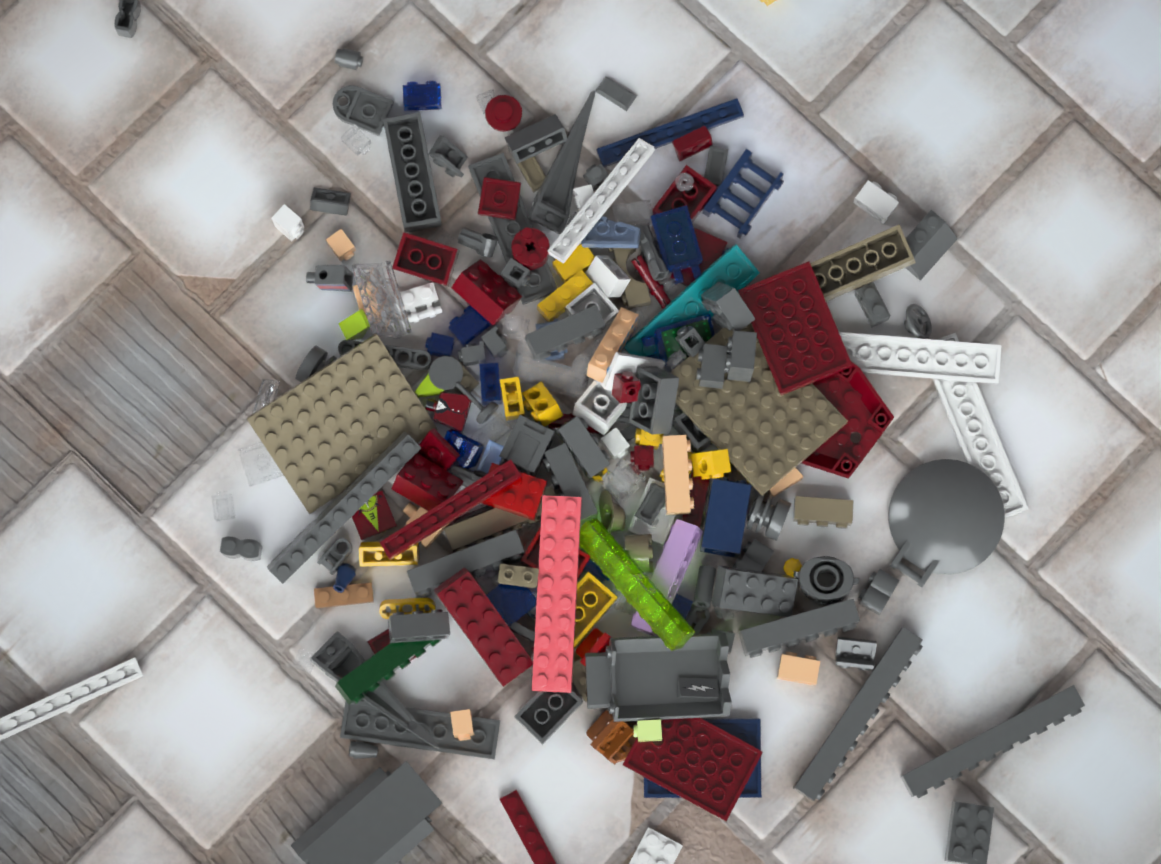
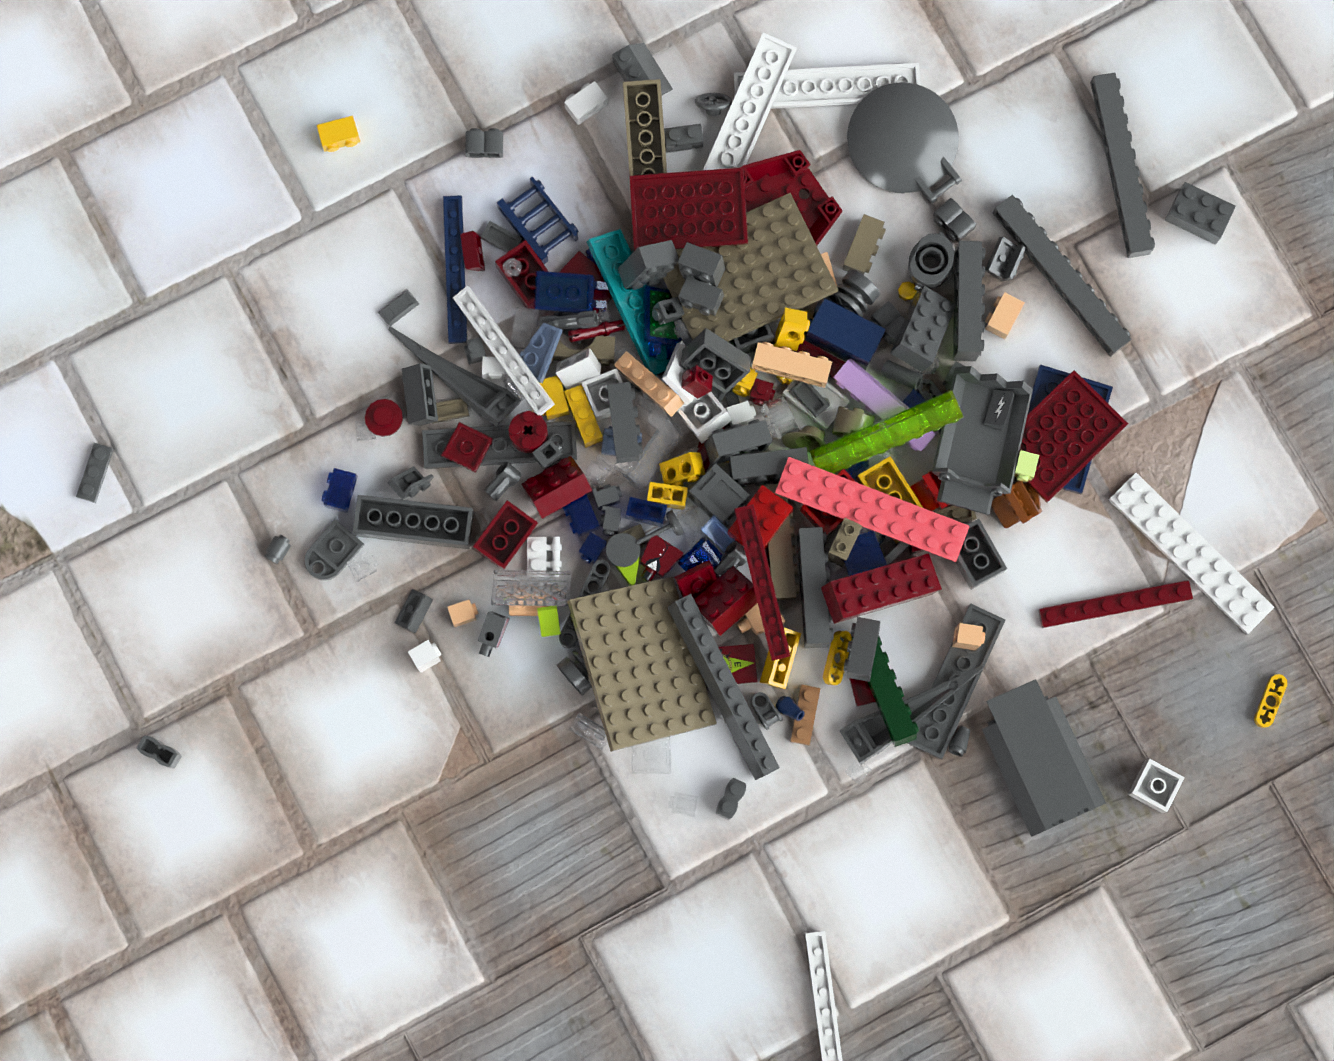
camera: 75 degrees left, 0 degrees up
(802, 119) = (484, 143): none -> dark grey brick

